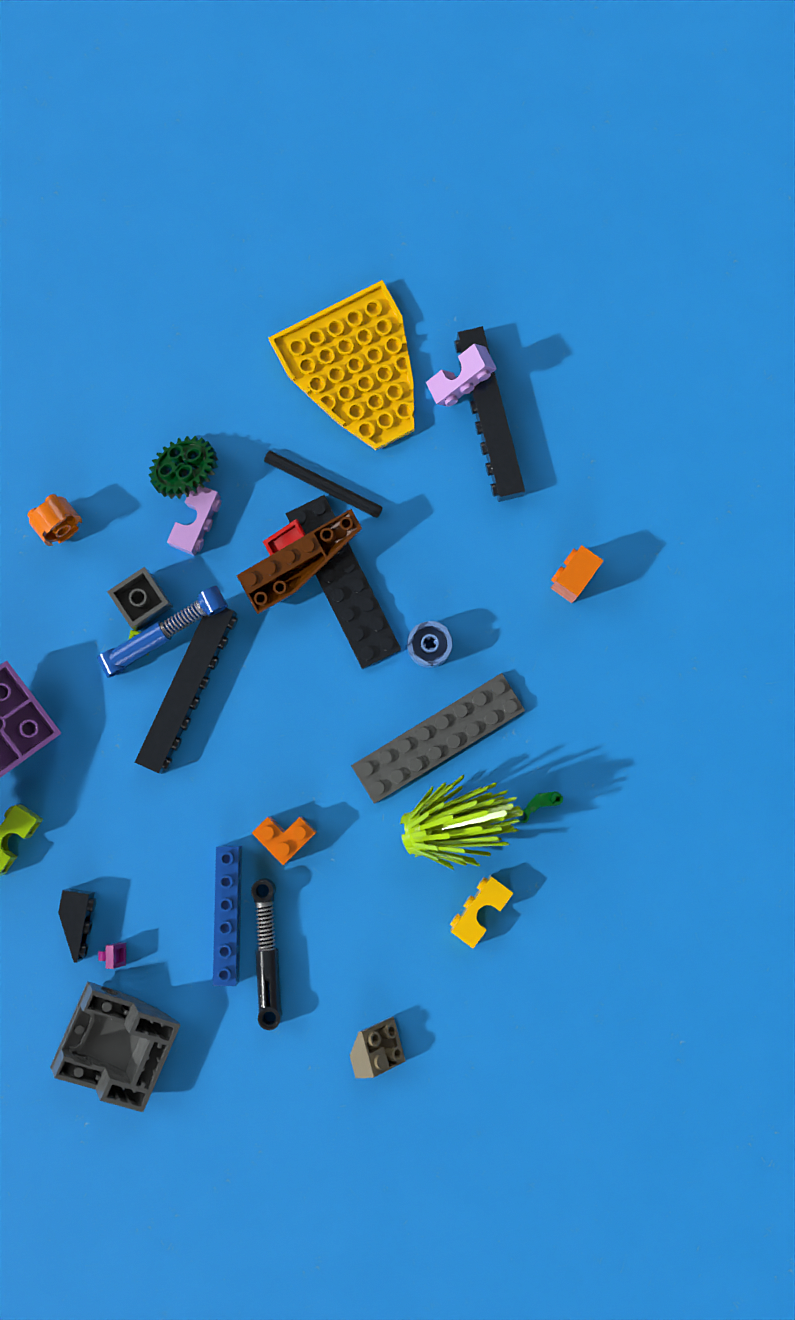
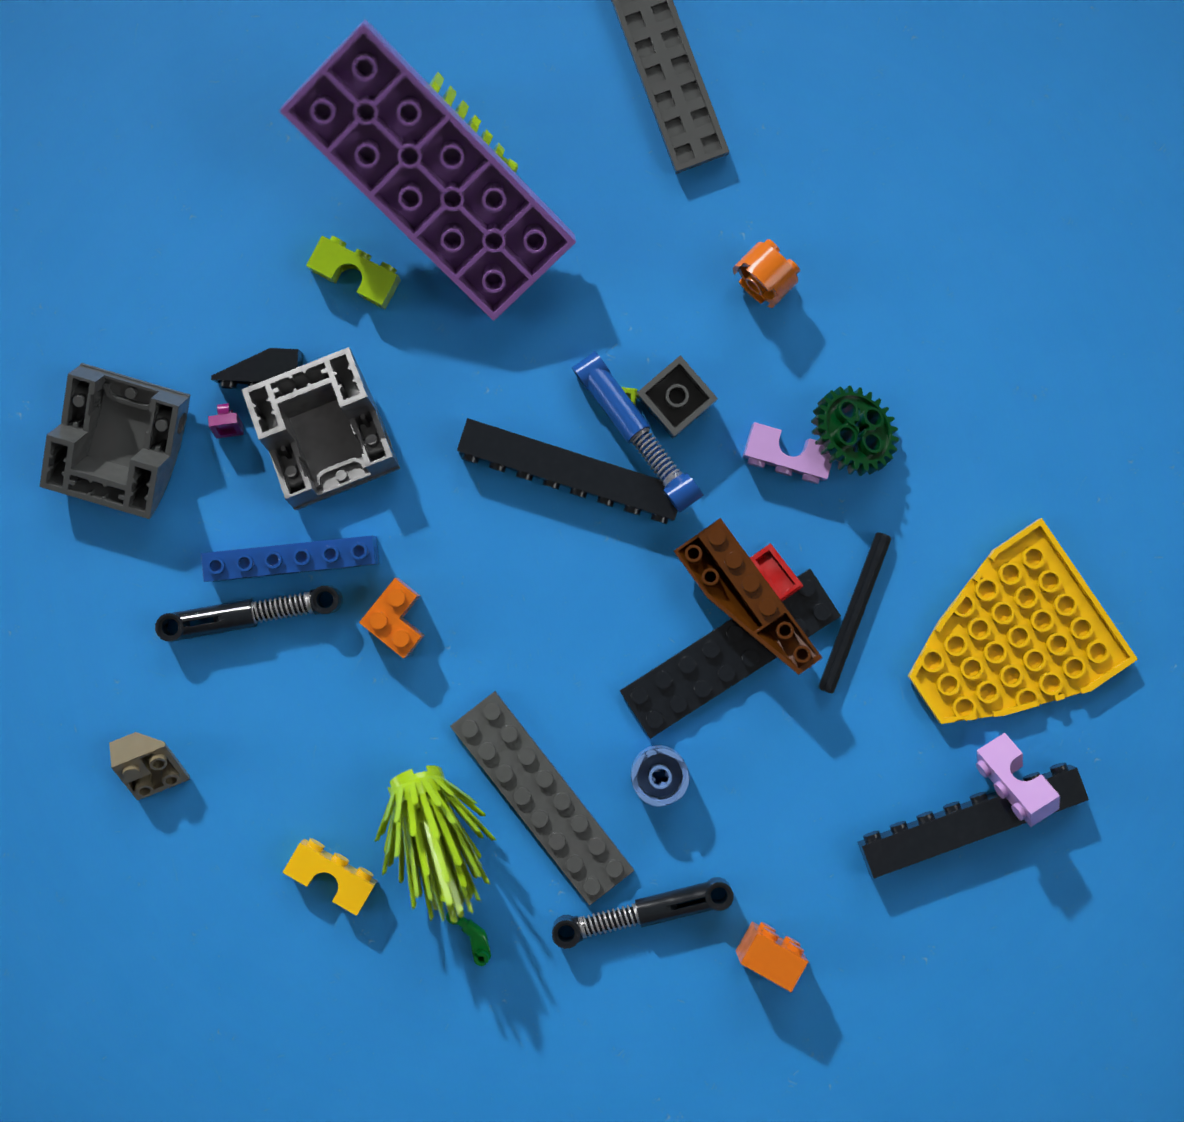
camera: 80 degrees right, 5 degrees up
(127, 878) = (321, 429): none -> flat silver slope
(534, 667) = (645, 911): none -> black piece

